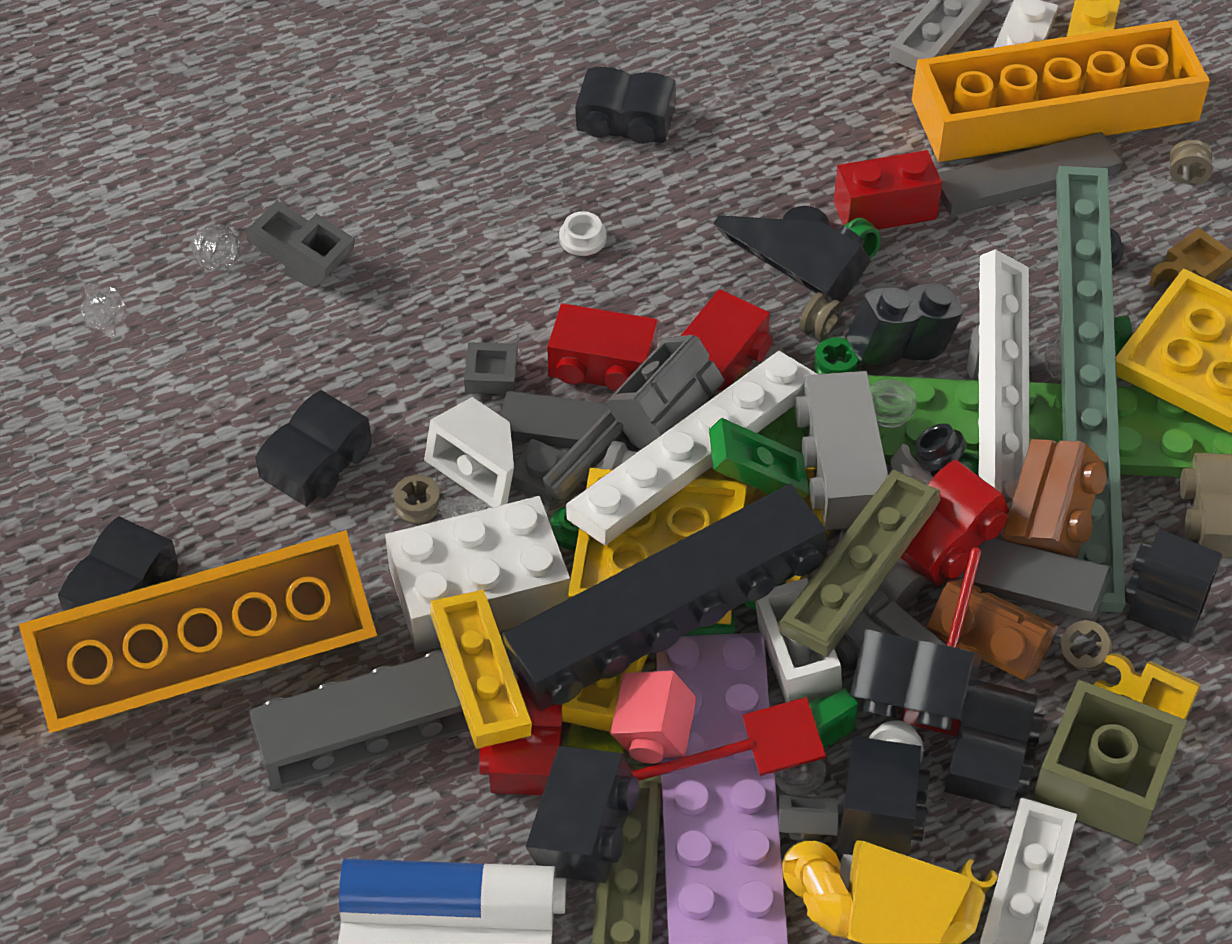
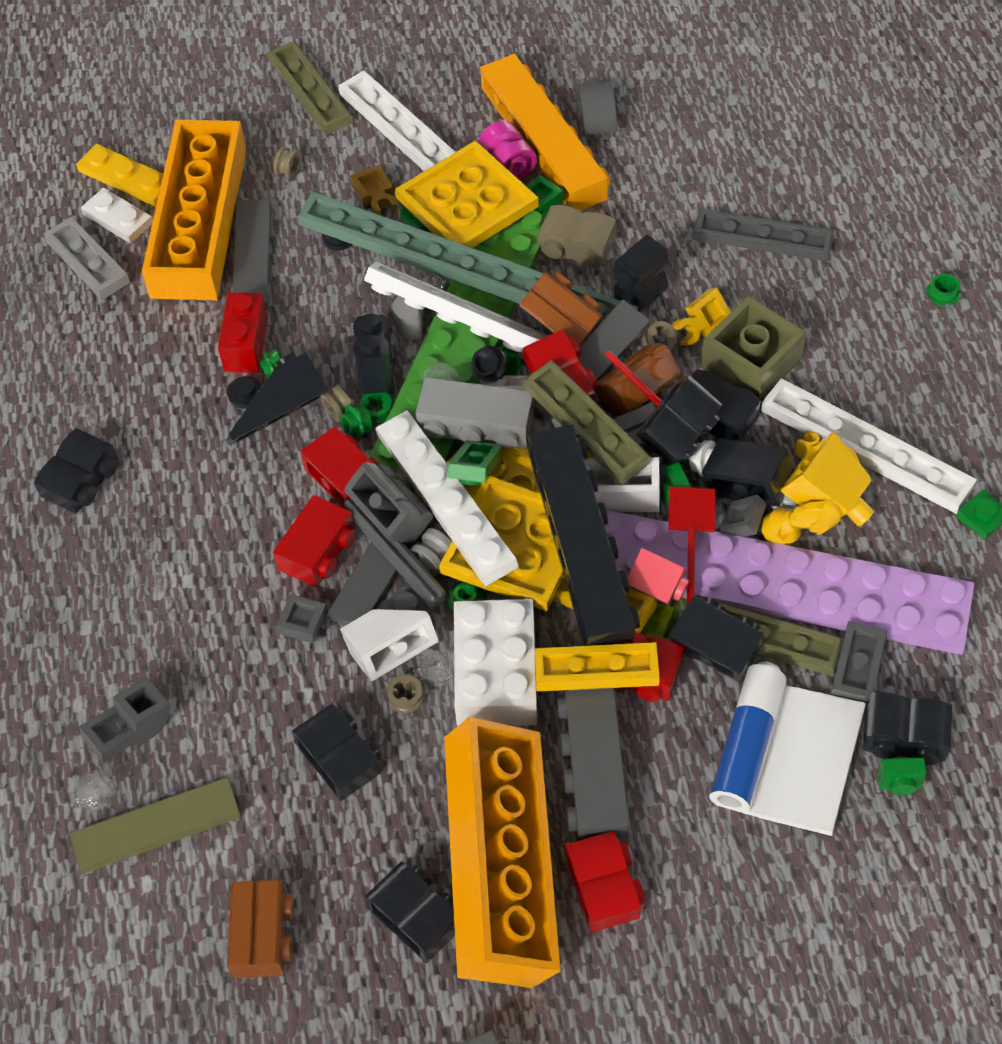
camera: 70 degrees left, 5 degrees up
(69, 436) = (259, 928): none -> dark orange brick
(103, 308) = (128, 886): clear plate -> none
(189, 316) = (154, 825): none -> olive tile
(196, 765) = (603, 881): none -> red brick
(582, 234) = (192, 531): white plate -> none
(801, 341) = (356, 421): none -> green plate

